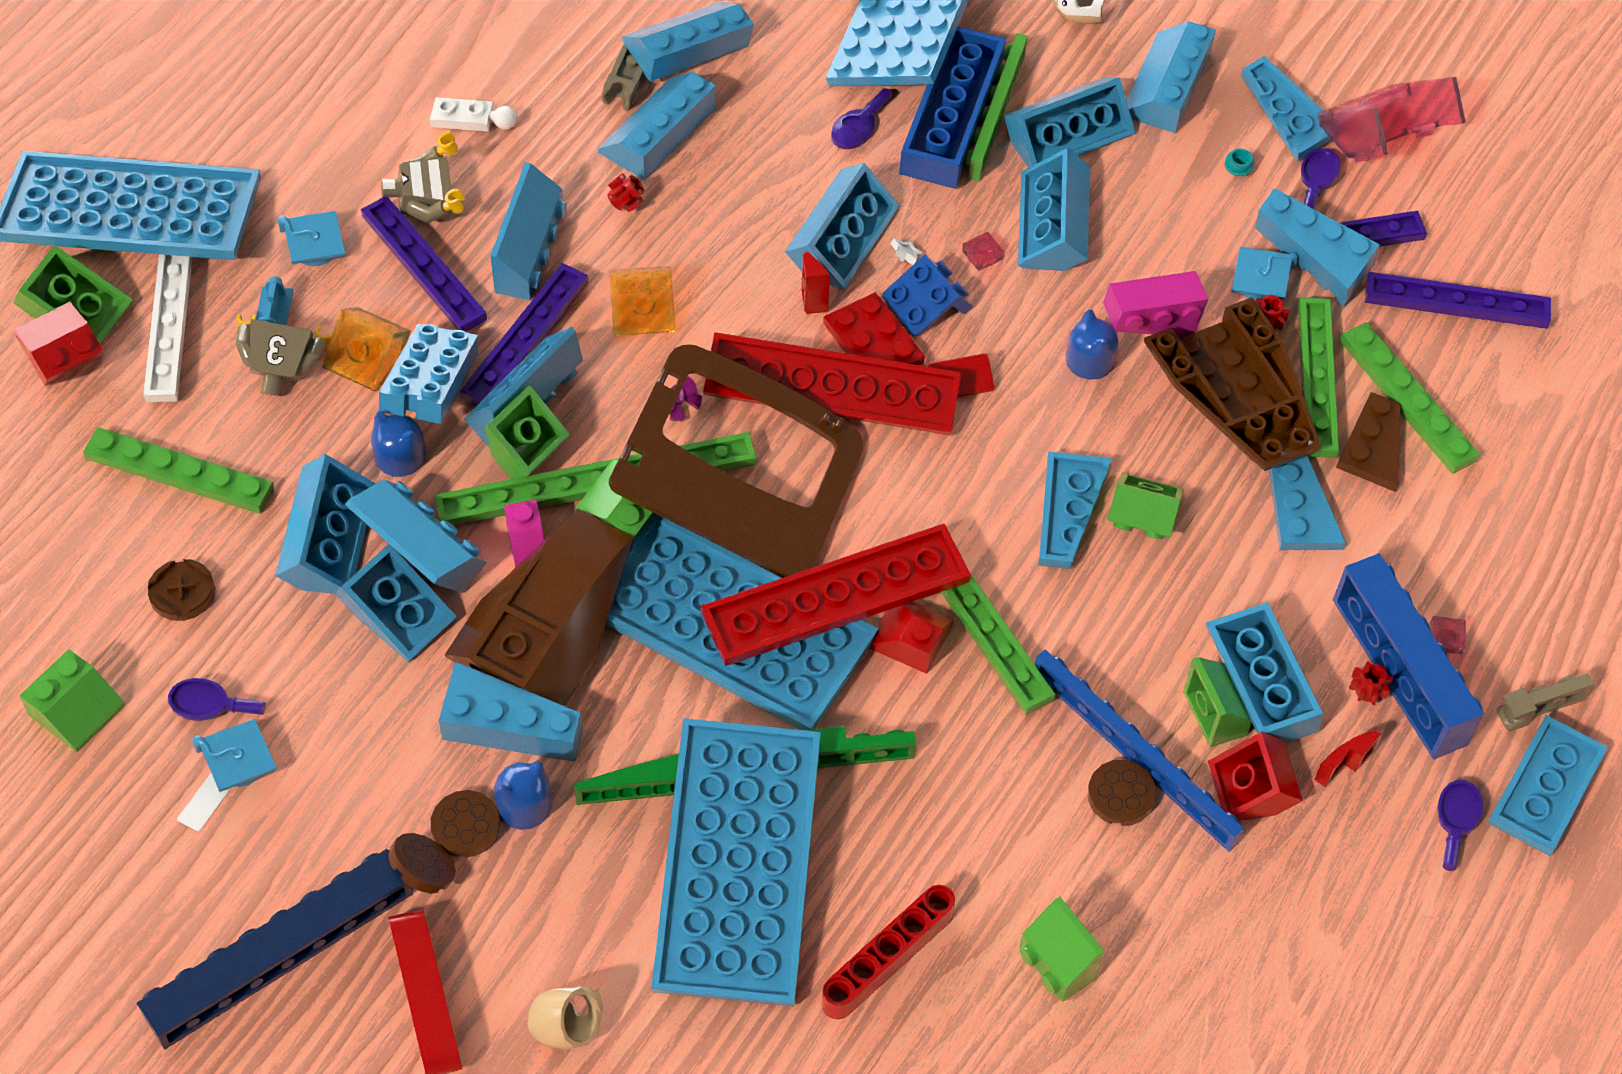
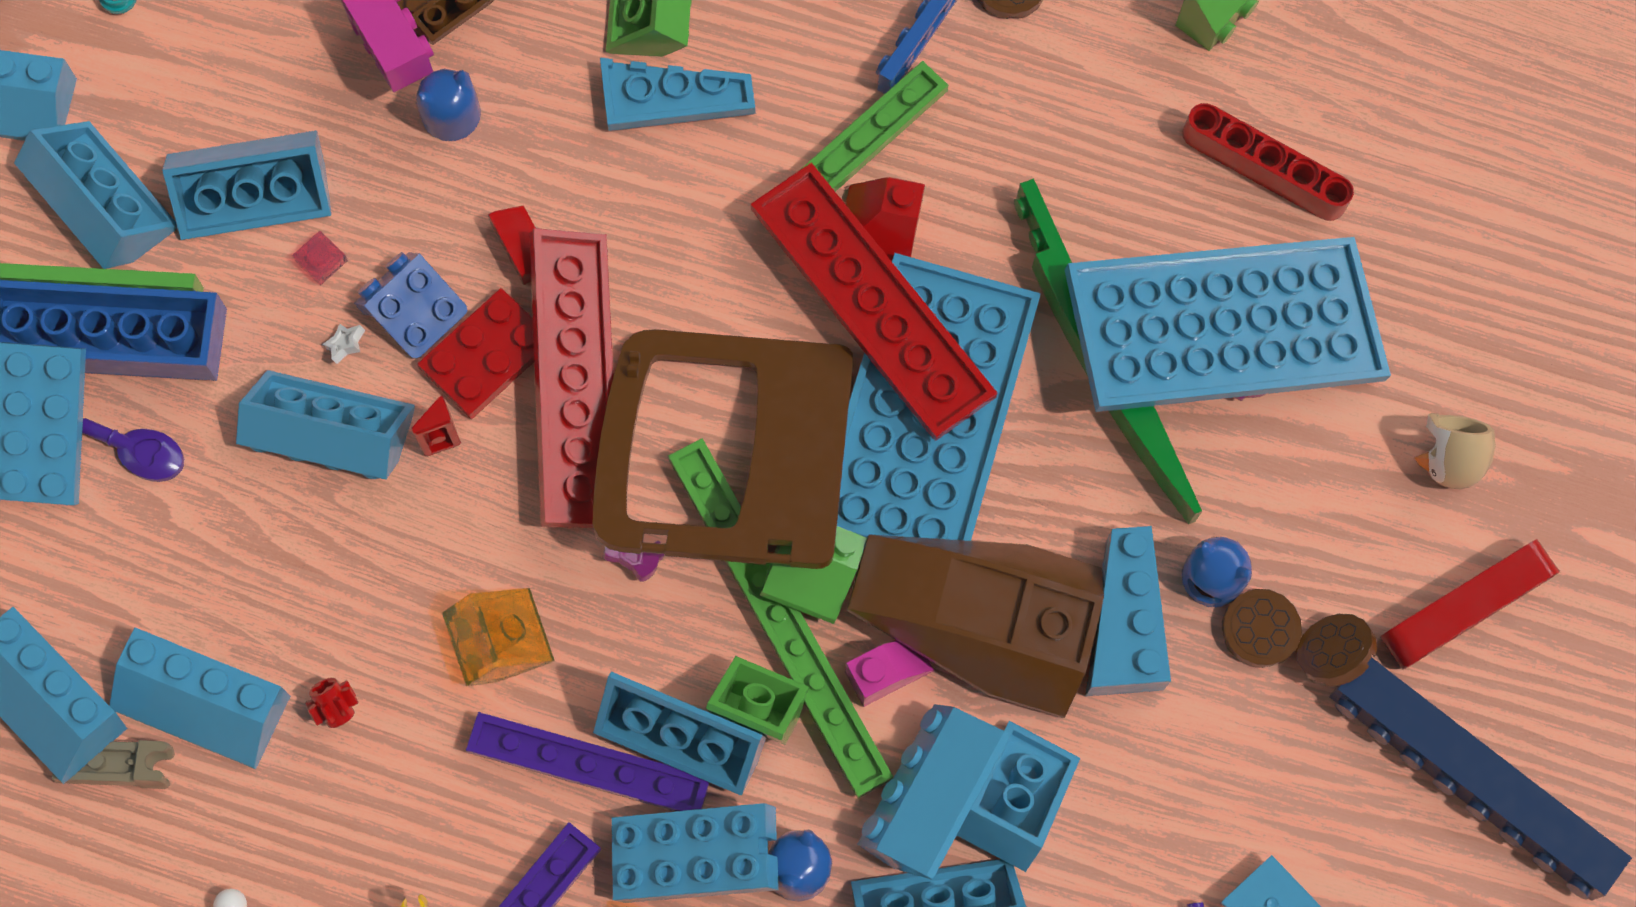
camera: 105 degrees left, 15 degrees up
(527, 234) = (435, 804): dark azure slope -> none

